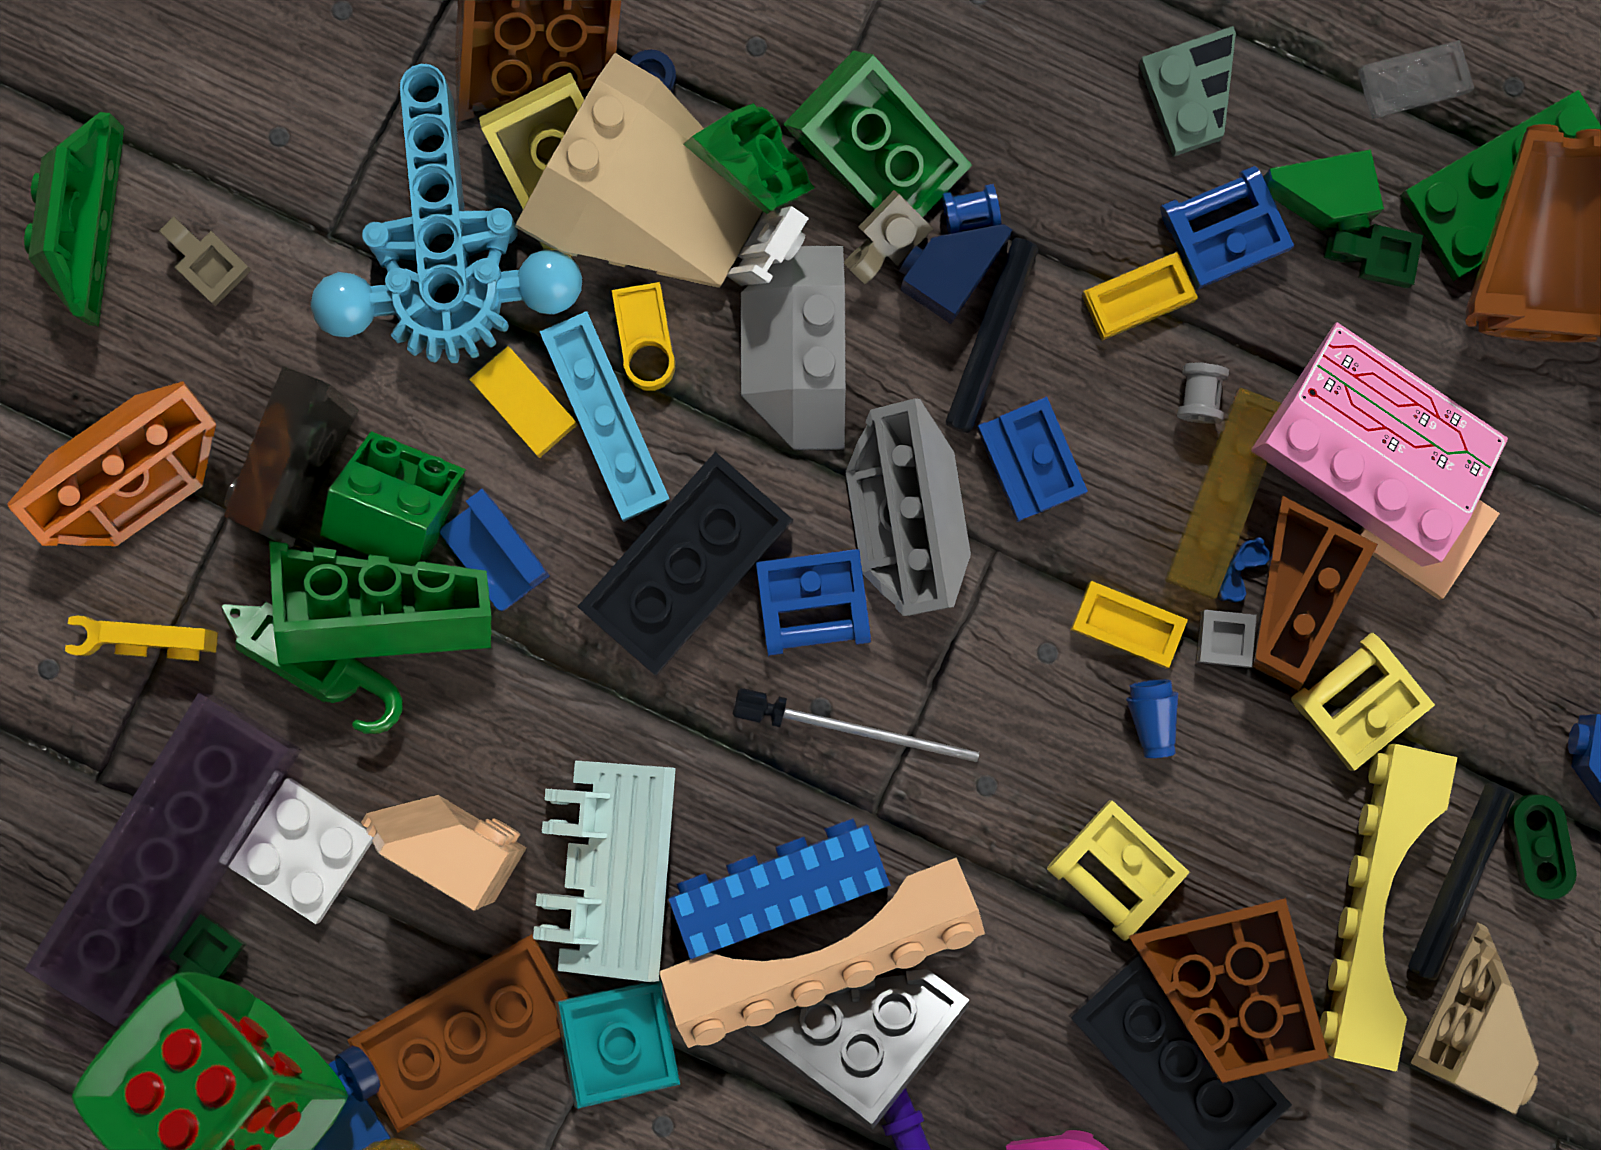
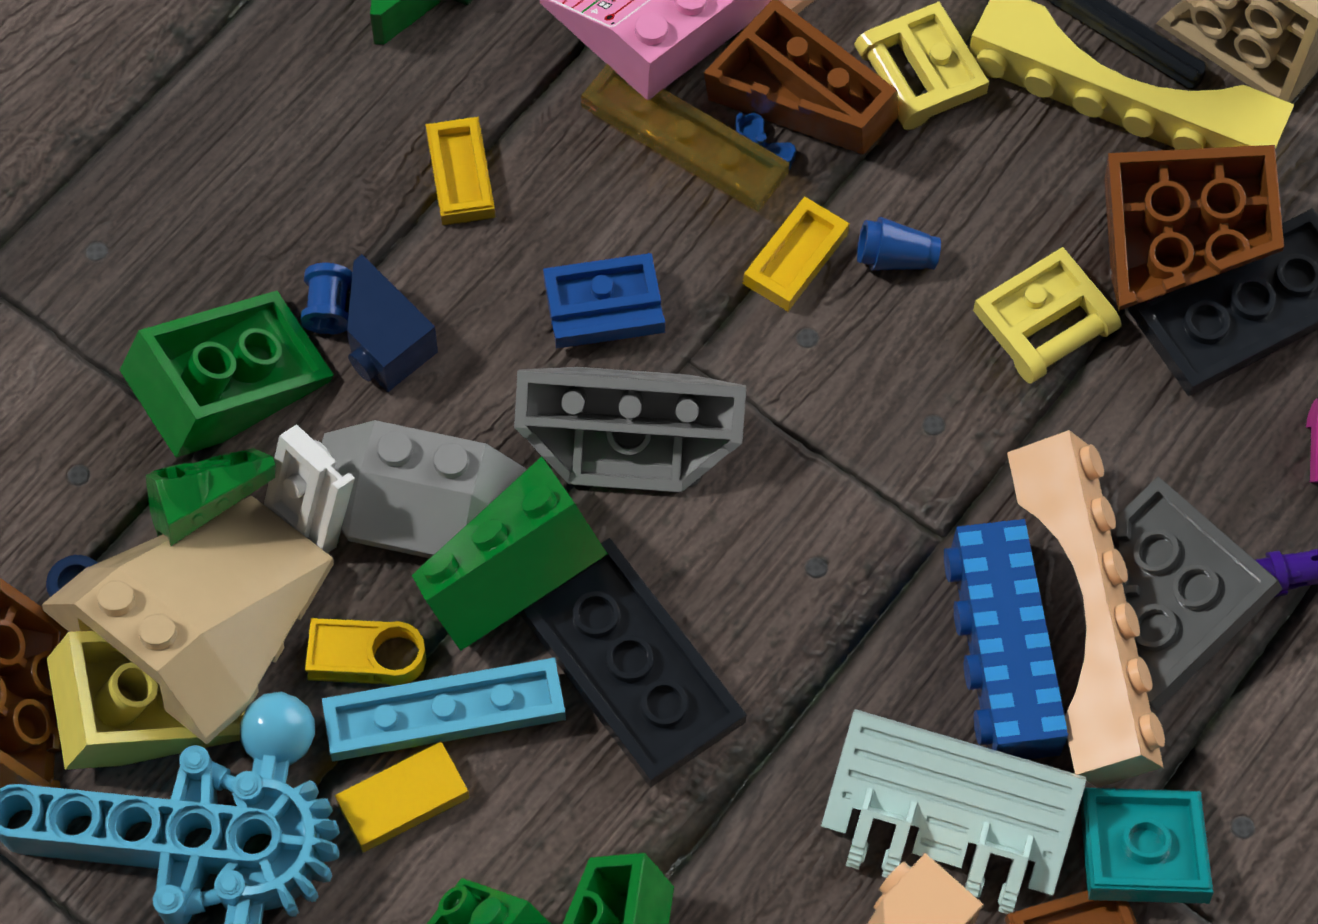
camera: 75 degrees left, 20 degrees down
(490, 543) = (551, 857): blue panel -> none
(750, 437) = (508, 556): none -> green wedge
(754, 706) = (802, 625): flat silver piece -> none
(813, 584) = (683, 536): blue plate -> none
(892, 232) = (330, 379): dark tan plate -> none
(991, 335) = (464, 312): black axle -> none
(1191, 89) = (263, 78): sand green wing -> none
(1203, 393) = (577, 131): light grey bush -> none
(1226, 638) = (831, 166): light grey plate -> none
(1234, 241) = (431, 71): blue plate -> none

